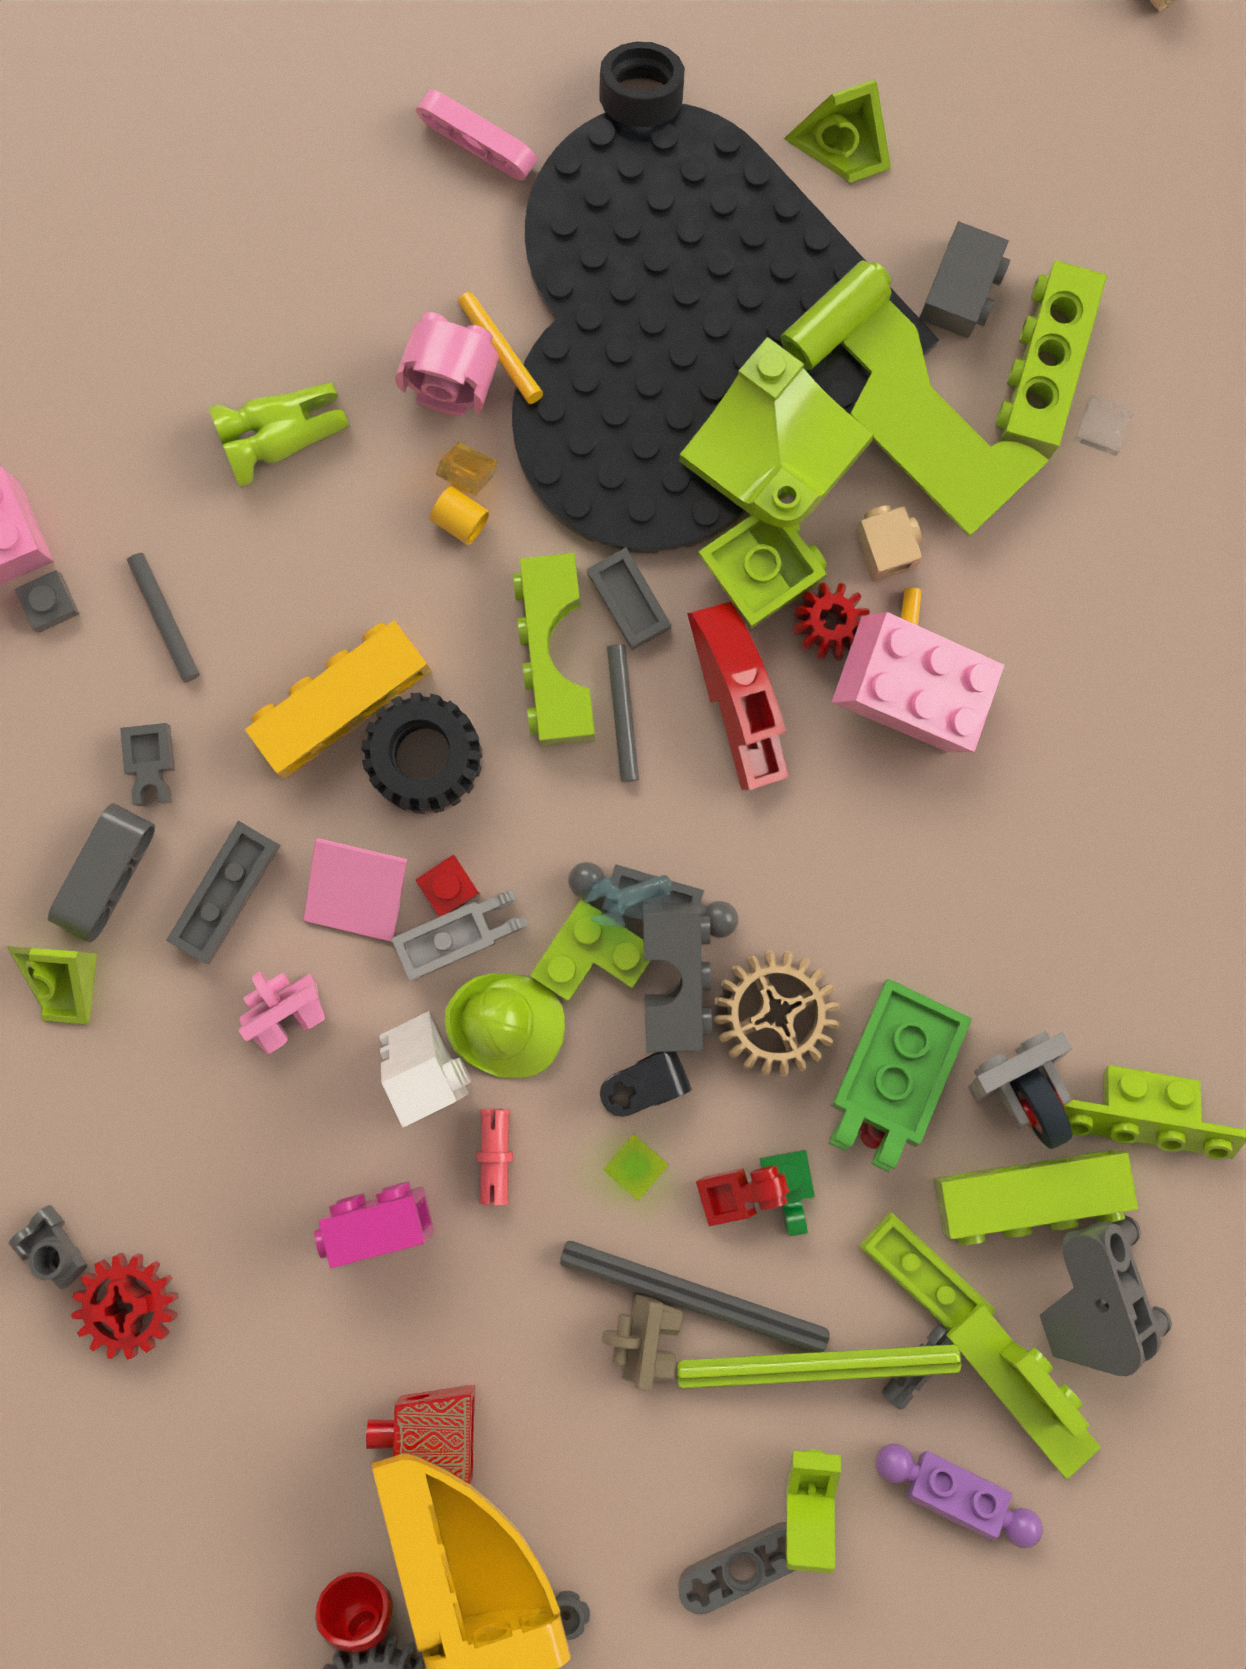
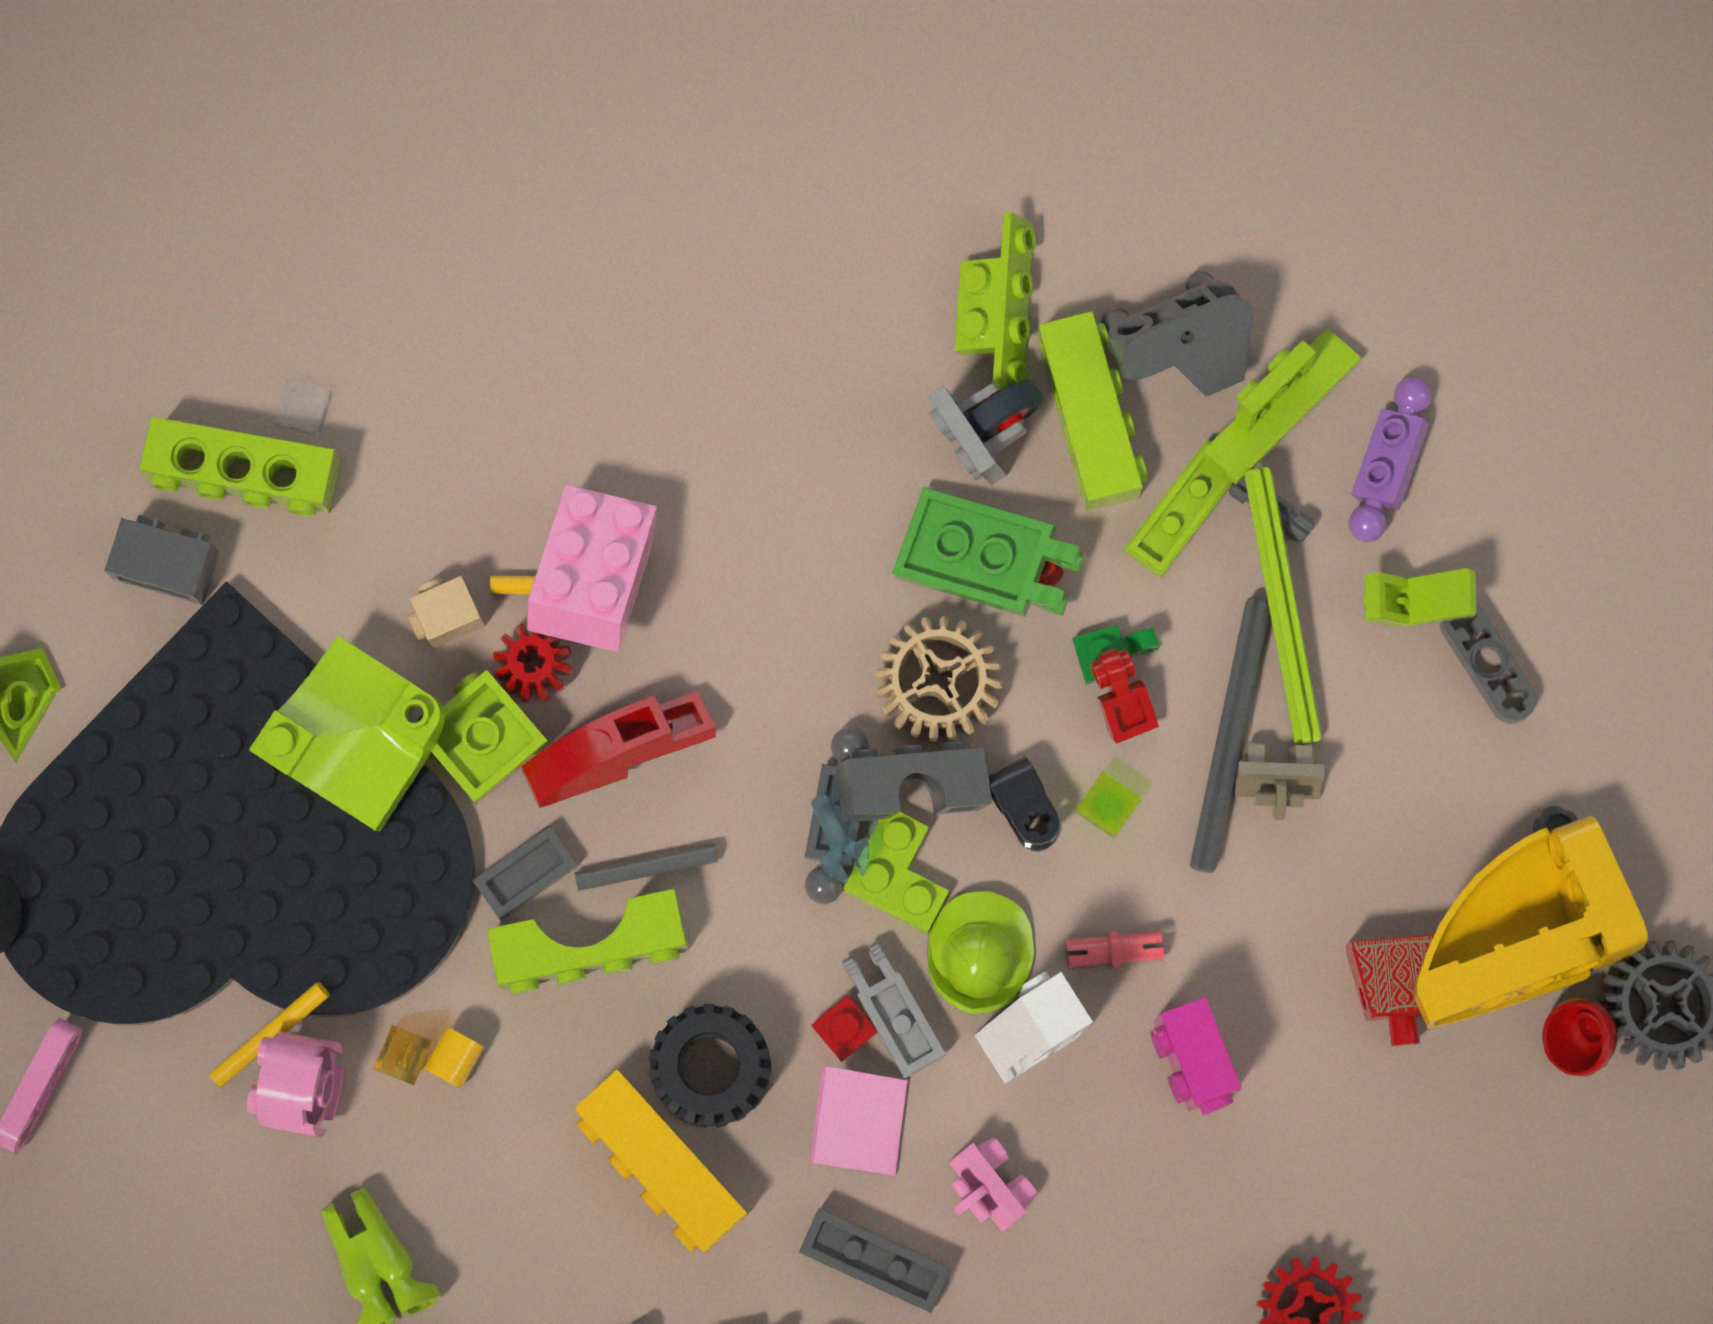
camera: 95 degrees left, 5 degrees down
(902, 407) = (303, 611): lime door -> none

